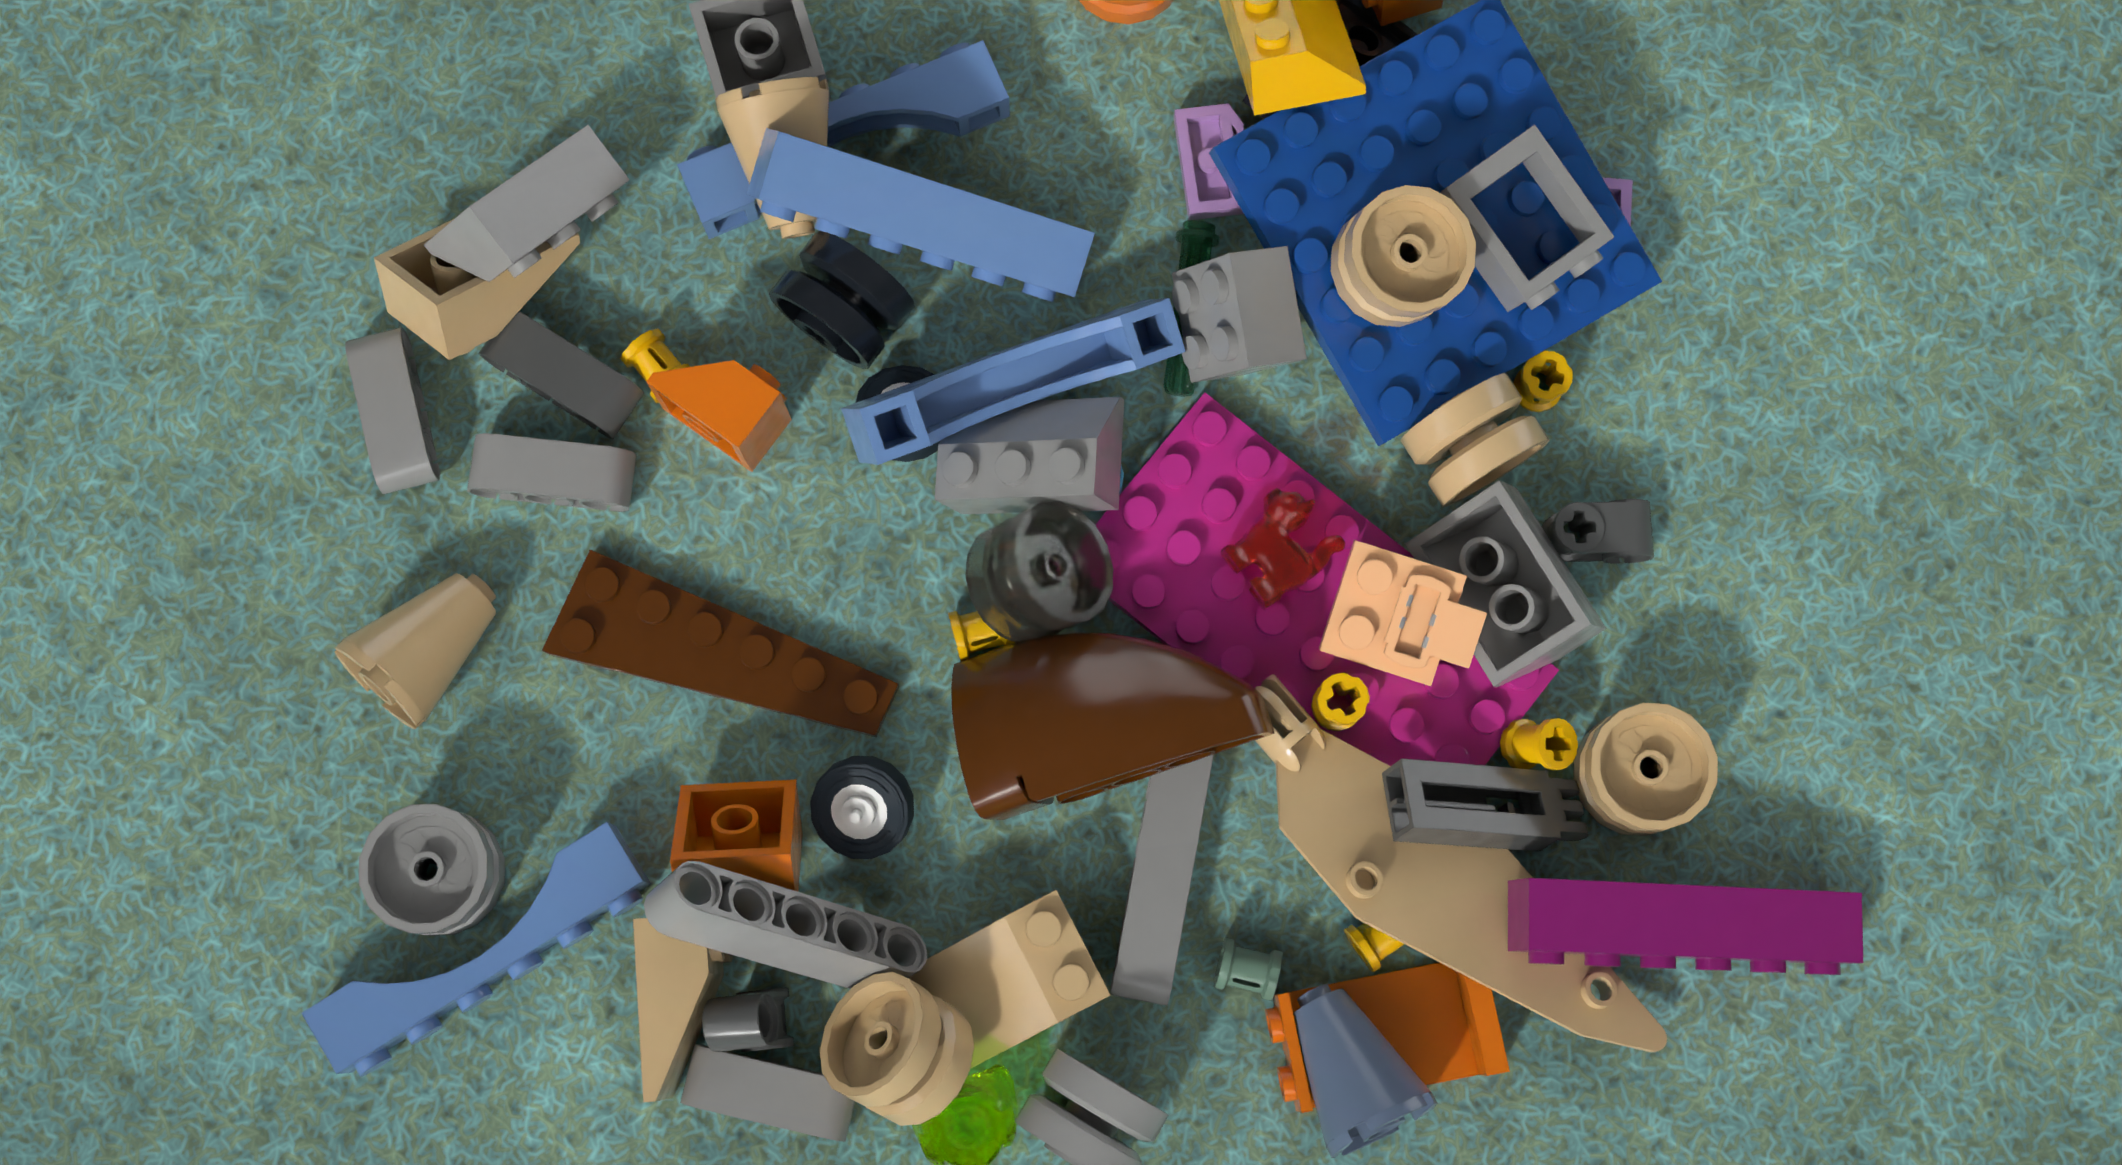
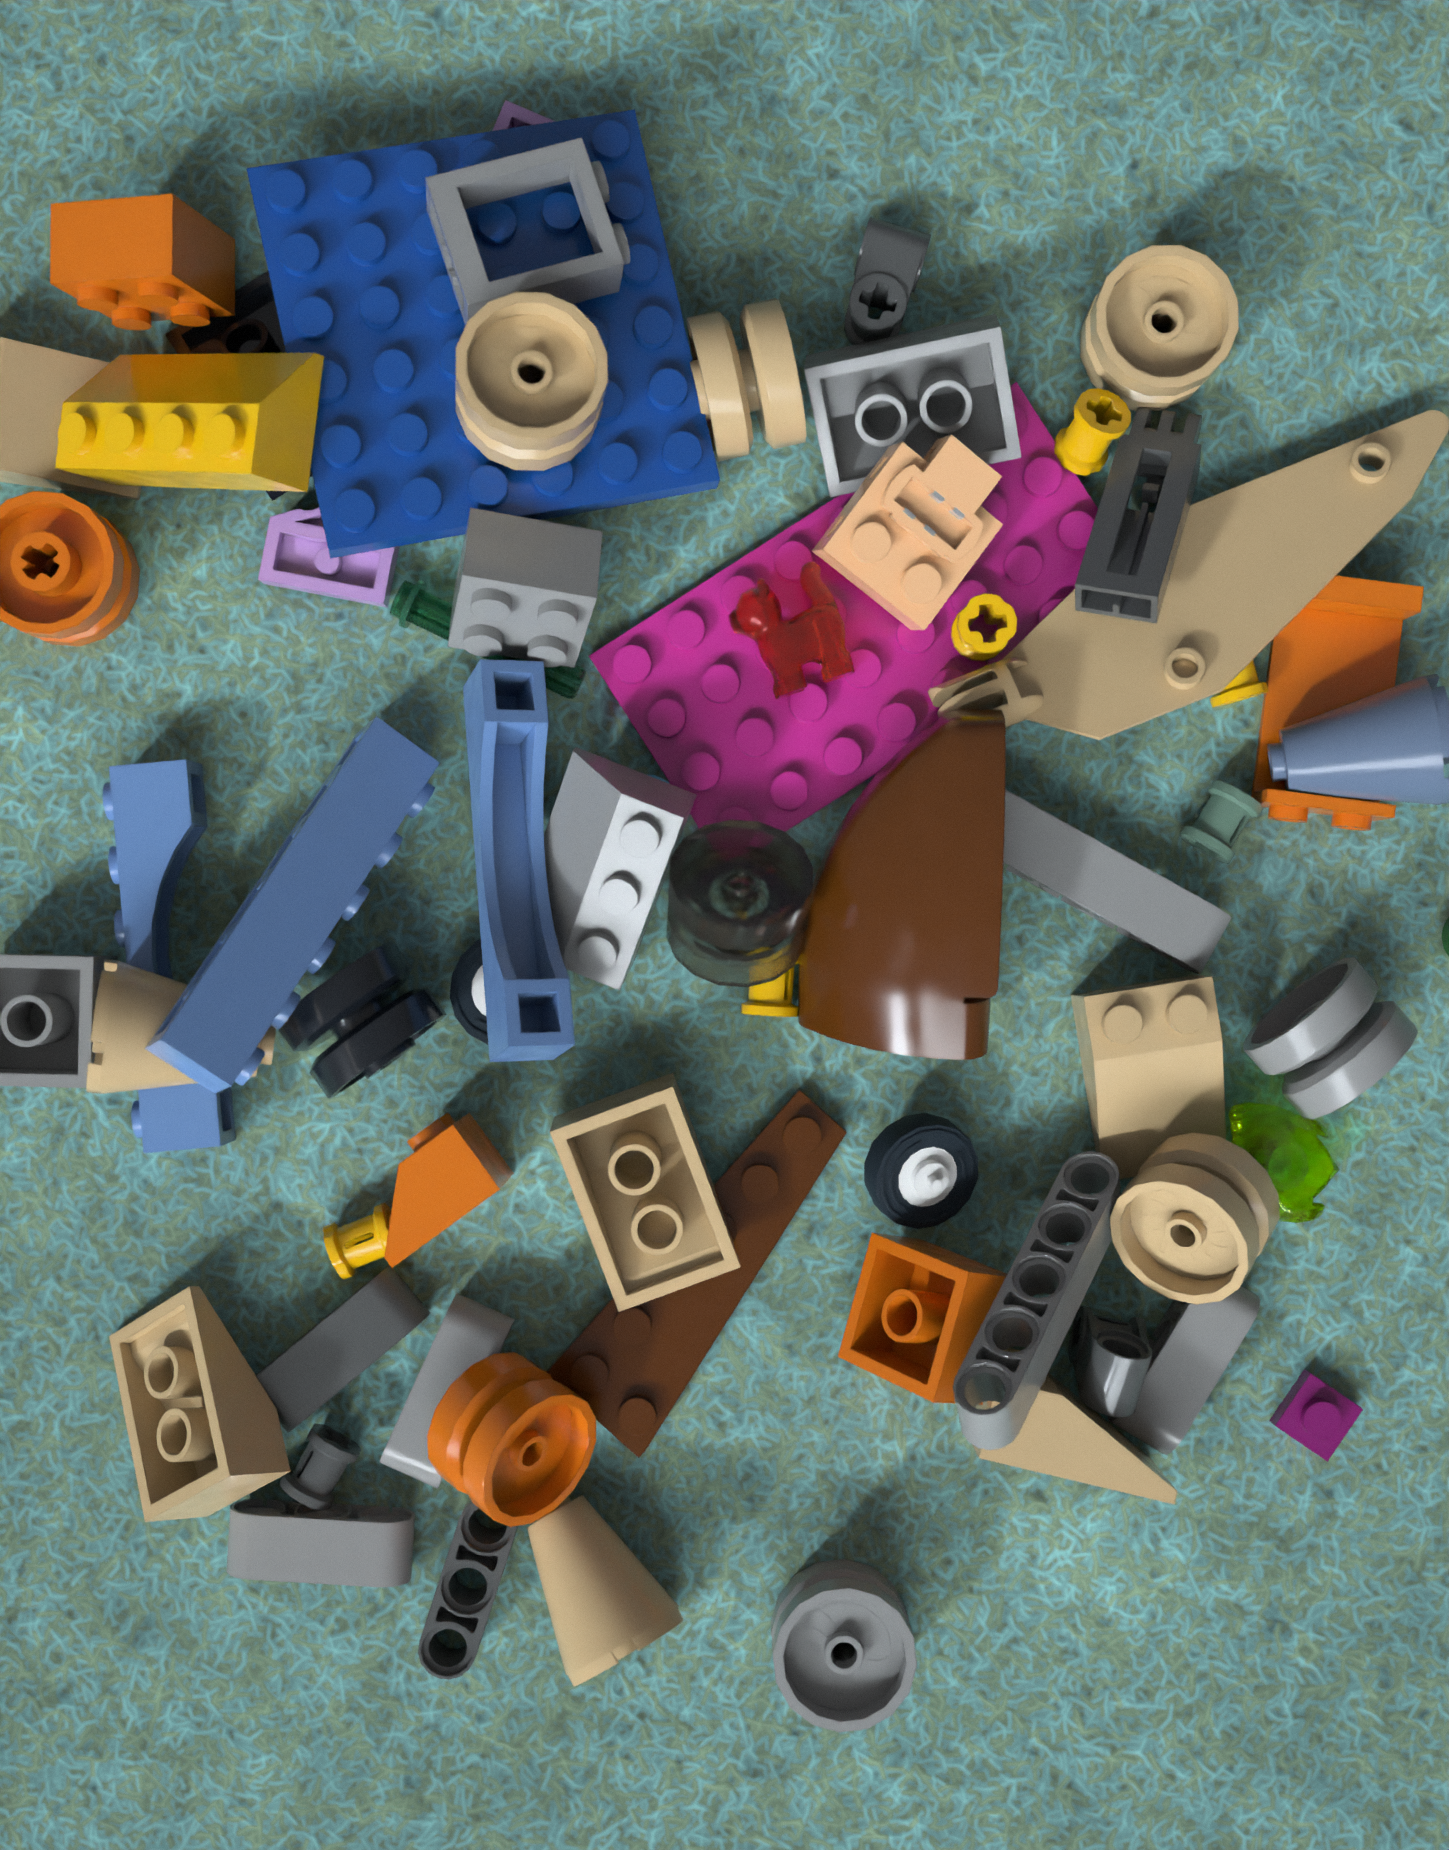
camera: 70 degrees left, 10 degrees up
(371, 1017) = (968, 1737): medium blue arch -> none
(373, 531) = (464, 1607): none -> dark grey beam
(456, 390) = (320, 1467): none -> dark grey bush
(530, 530) = (511, 1438): none -> orange wheel
(532, 209) = (149, 1331): light grey slope -> none
(771, 577) = (644, 1192): none -> tan slope
(1558, 378) = (694, 265): yellow bush -> none
(1684, 922) = (1334, 348): magenta brick -> none

